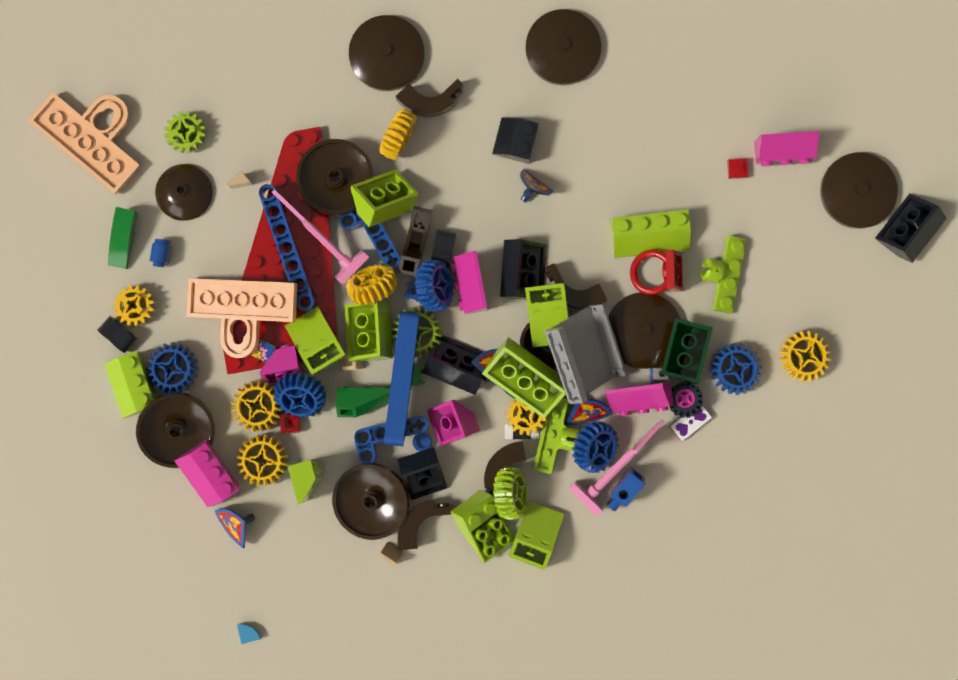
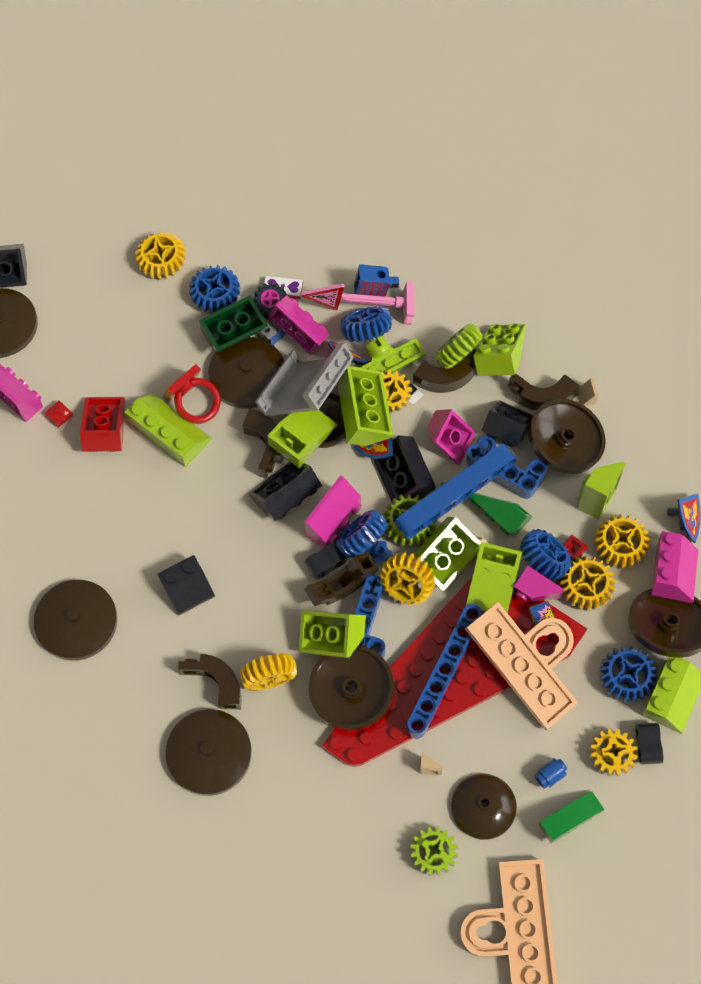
camera: 130 degrees left, 20 degrees down
(350, 265) = (410, 615): bright pink piece -> none
(533, 185) = (211, 535): shield -> none
(536, 535) = (473, 305): lime slope -> none
(698, 191) = (102, 424): none -> red slope
(725, 274) = (149, 354): lime plate -> none

